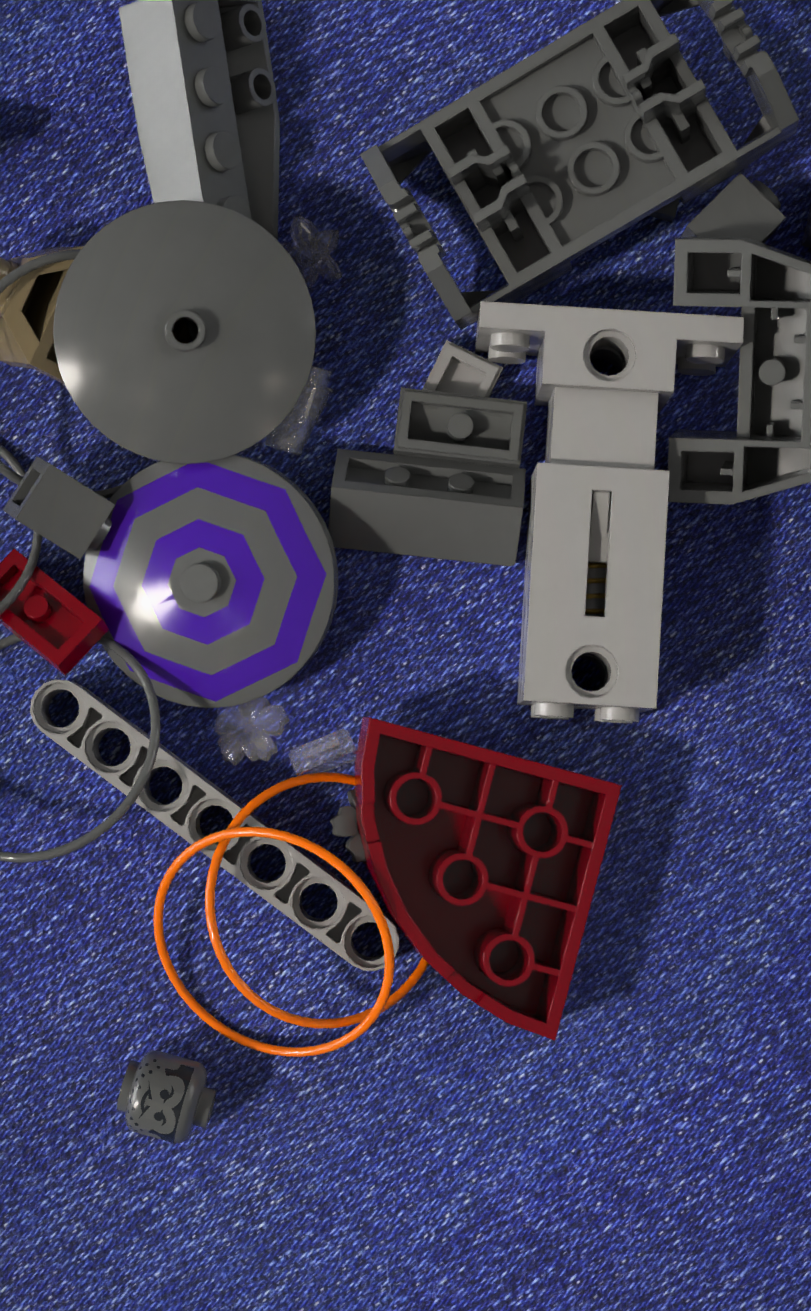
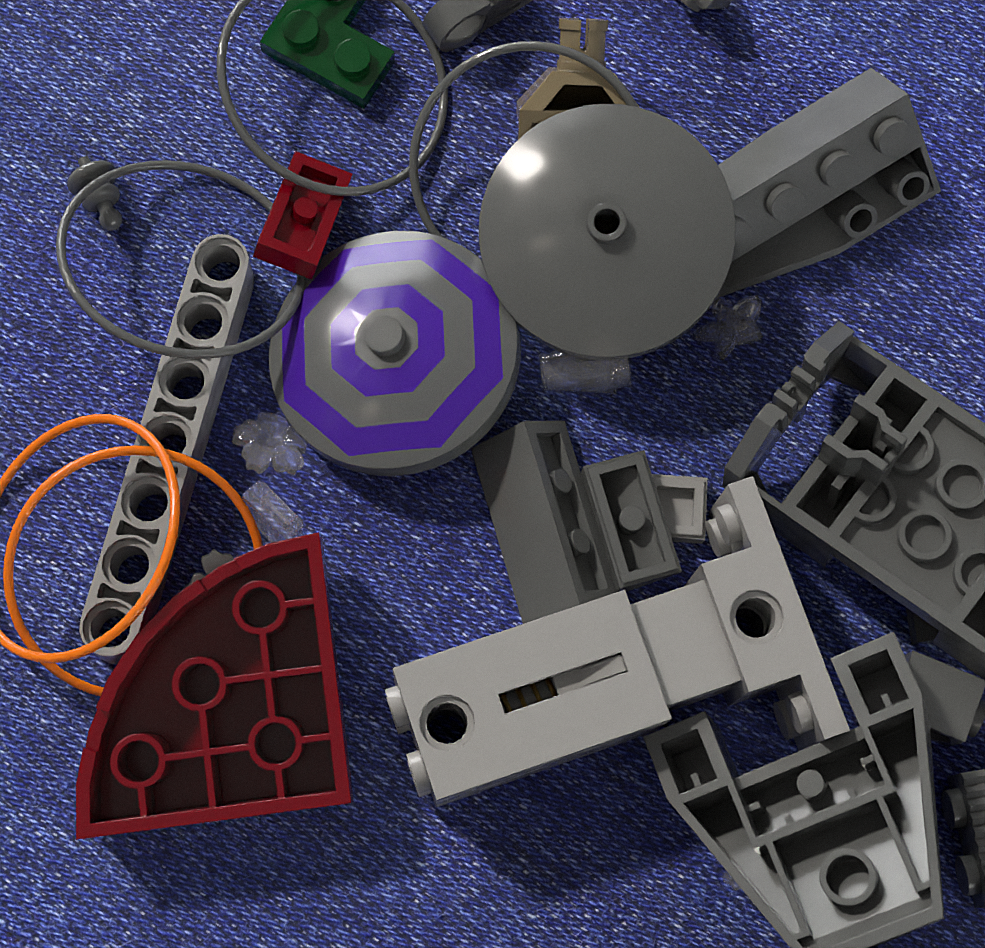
camera: 60 degrees right, 10 degrees down
(60, 509) = (402, 193): dark grey brick -> none

